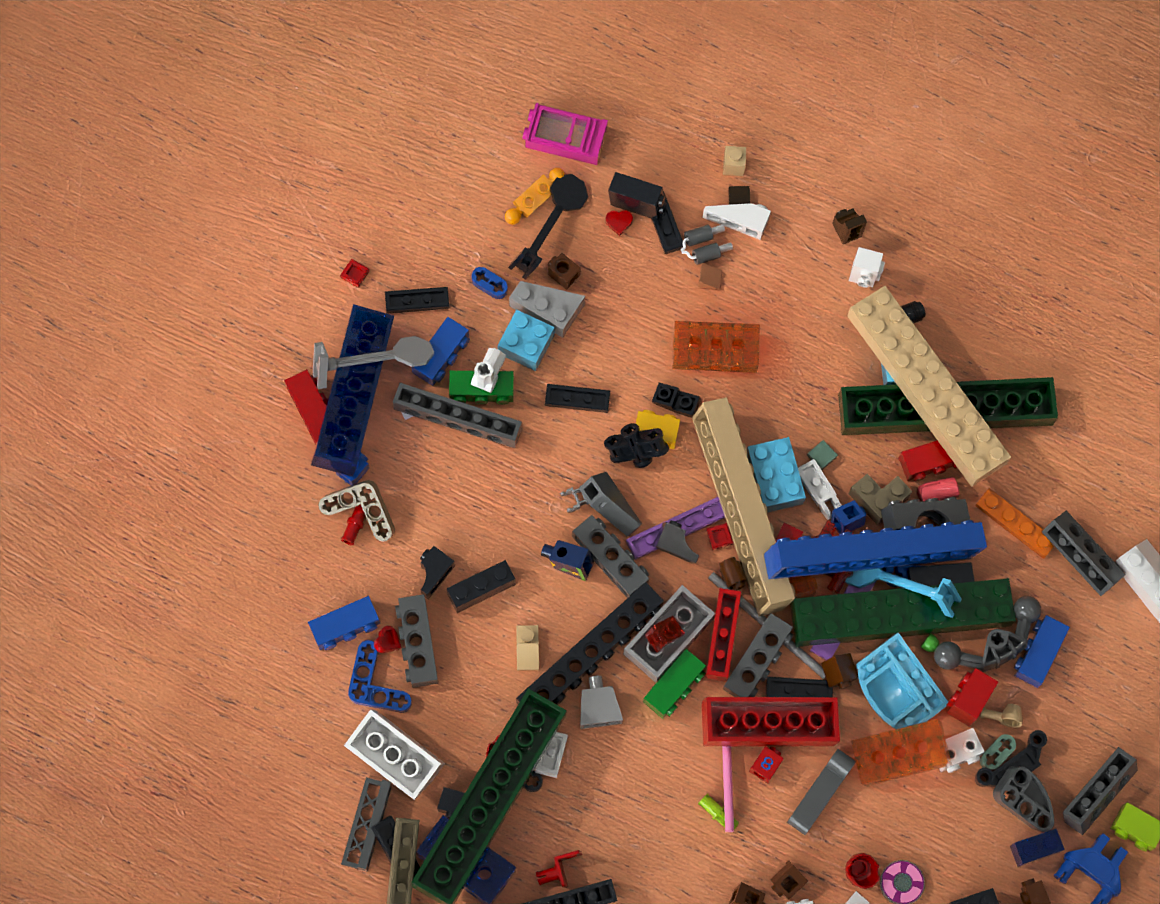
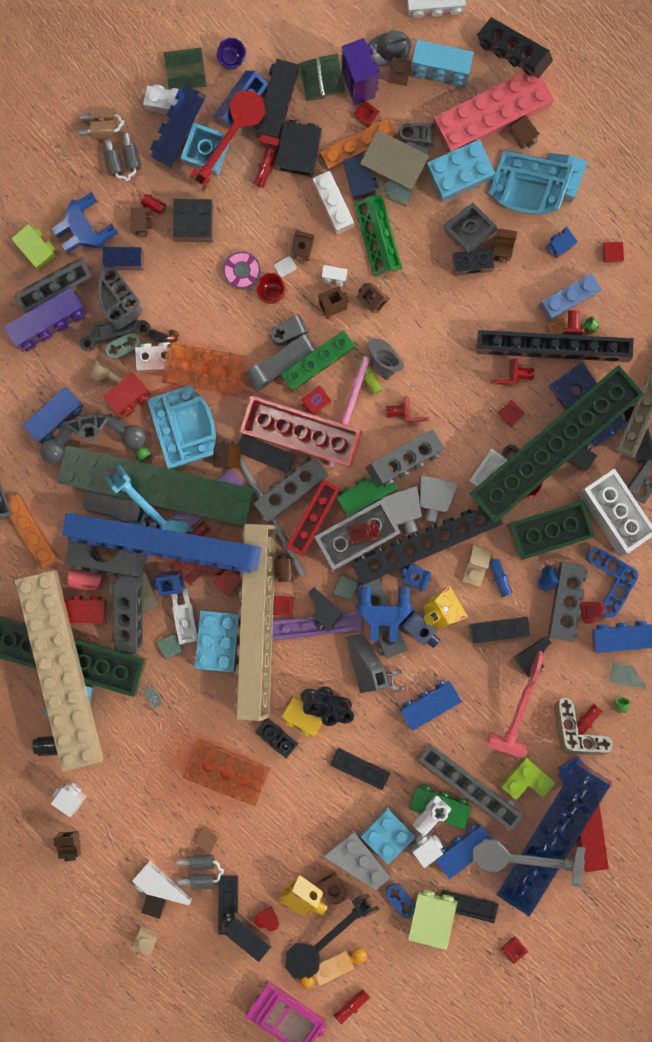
camera: 155 degrees left, 15 degrees up
(322, 558) = (622, 704): none -> bright green hinge
(326, 586) = (626, 675): none -> clear light blue tile
(400, 447) = (525, 775): none -> lime brick
(431, 472) = (507, 743): none -> coral piece
(446, 659) = (548, 578): none -> blue tile
(450, 273) = (433, 919): none -> yellowish green brick
(461, 709) = (551, 530): none -> dark green brick
(481, 337) = (427, 848): none -> white brick
(497, 643) = (500, 577): none -> blue axle
(503, 166) = (351, 1006): none -> red pin
(527, 485) = (430, 704): none -> blue brick
(547, 827) = (510, 413): none -> red tile
(549, 586) = (443, 609): none -> yellow torso
(586, 619) = (423, 580): none -> blue brick
(591, 250) = (302, 897): none -> yellow torso
(611, 556) = (384, 615): none -> blue connector
(628, 680) = (404, 508): none -> light grey torso
(660, 576) = (346, 588): none -> sand green tile
(665, 787) = (404, 410): none -> red bracket
(673, 709) = (427, 442): none -> dark grey brick
(709, 838) = (385, 359): none -> dark grey piece
(780, 808) = (318, 361): none -> green brick
(819, 397) = (153, 697): none -> clear light blue tile
(822, 834) = (291, 330): none -> dark grey piece
(879, 466) = (128, 614): none -> dark grey brick
(957, 776) = (162, 337): none -> arm
(1092, 748) = (46, 320): none -> dark purple brick

